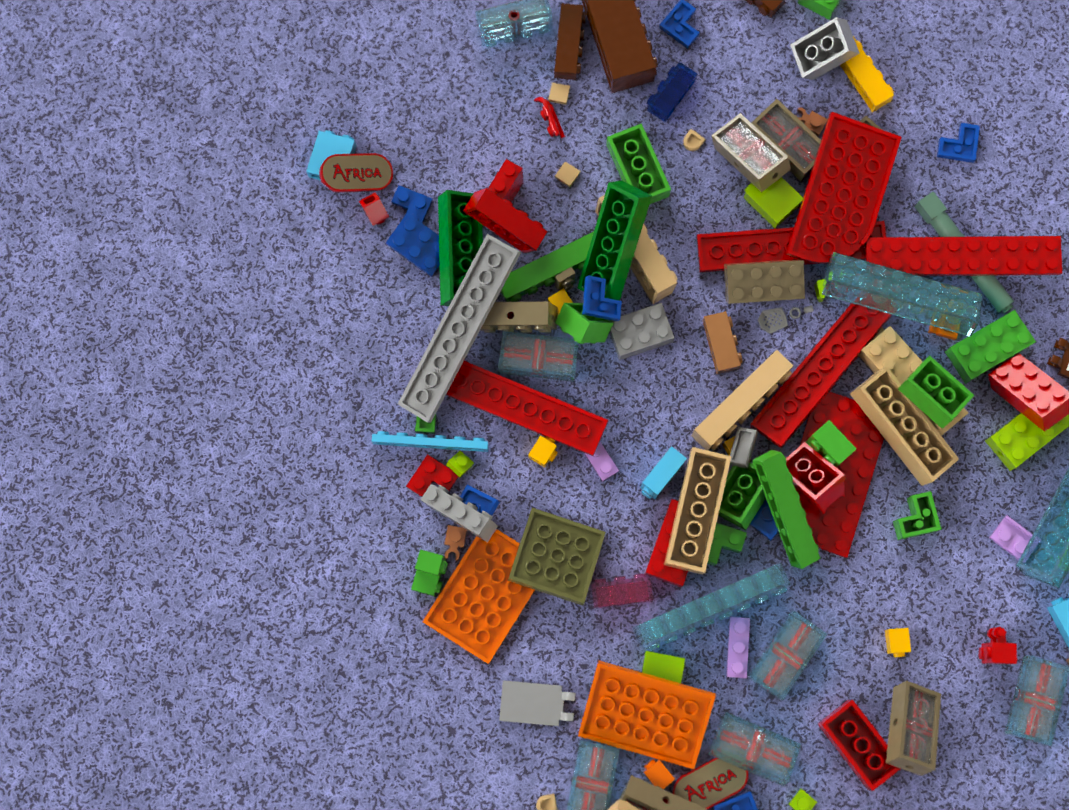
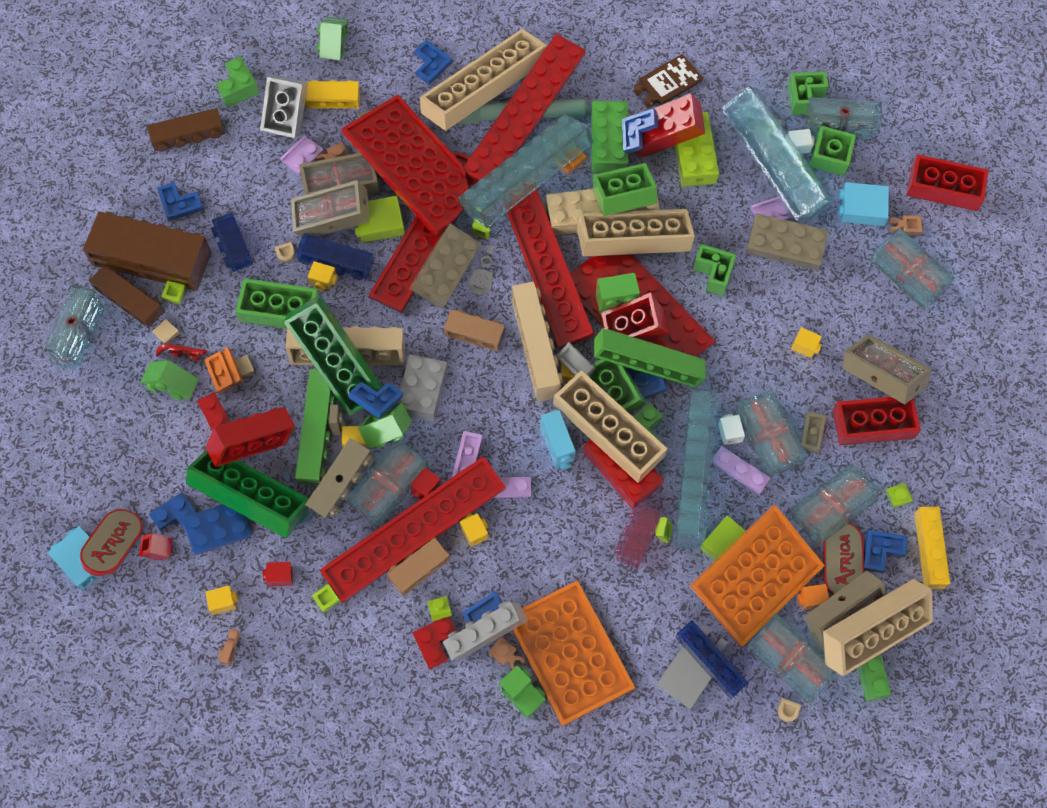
camera: 65 degrees left, 10 degrees down
(324, 319) = (227, 652): none -> nougat plate
(363, 288) = (221, 600): none -> yellow brick
(410, 318) = (278, 574): none -> red brick
(410, 366) = (326, 598): none -> lime plate
(422, 441) = (397, 629): medium azure plate -> none
(424, 427) = (382, 617): bright green plate -> none
(459, 328) = (320, 531): light grey plate -> none
(483, 425) = (418, 567): none -> medium nougat brick
(516, 120) = (169, 378): none -> bright green brick
(546, 715) = (711, 659): none -> clear blue brick
(554, 161) = (223, 370): none -> orange plate
(556, 387) = (424, 484): none -> red brick
(557, 556) = (575, 570): olive plate -> none
(597, 76) = (173, 292): none -> lime plate
(607, 405) = (468, 451): none -> lavender plate
(640, 611) = (664, 530): none -> lime plate
(688, 185) = (322, 276): none -> yellow brick
(714, 184) = (342, 257): none -> clear blue brick
(770, 618) = (731, 429): none -> white brick
(794, 93) = (300, 153): none -> lavender plate
(814, 693) = (813, 431): none -> dark tan plate
(924, 43) = (332, 36): none -> brick
(968, 200) = (482, 80): none -> tan brick
(988, 568) = (787, 241): none -> dark tan brick
(998, 650) = (856, 271): red brick -> none
(1008, 363) = (635, 126): none -> plate

